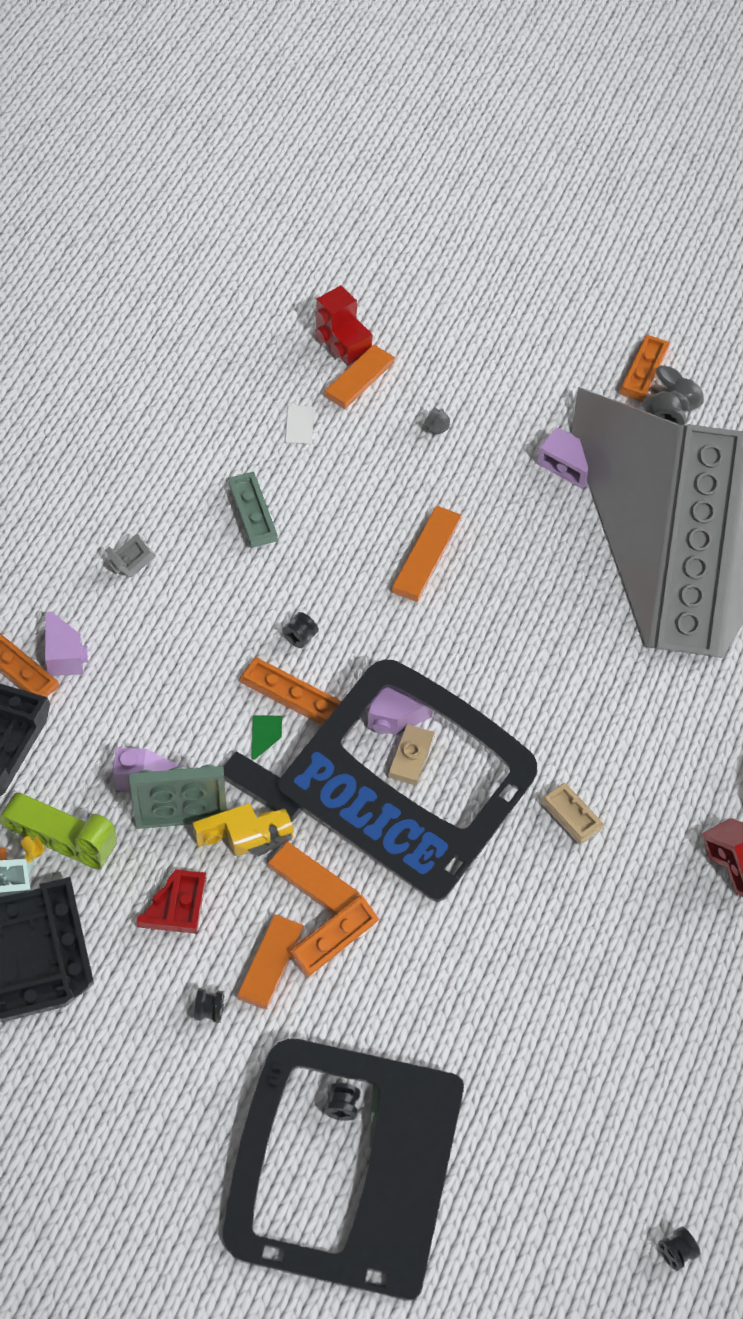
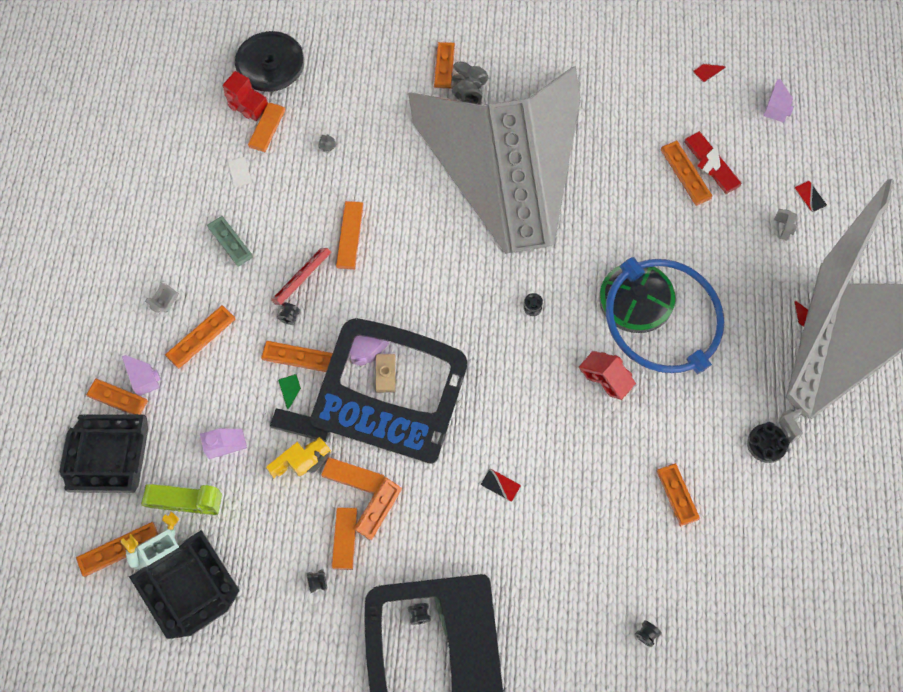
camera: 15 degrees left, 10 degrees up
(164, 623) = (200, 336): none -> orange tile
(177, 795) = (250, 454): sand green plate -> none
(177, 904) = (274, 521): red wing -> none
(336, 585) = (301, 276): none -> tile
(396, 290) = (270, 60): none -> black dish
(527, 964) = (500, 485): none -> sticker
(564, 457) = (414, 142): lavender slope -> none
(572, 813) = (496, 379): tan plate -> none
(663, 720) = (533, 300): none -> black wheel

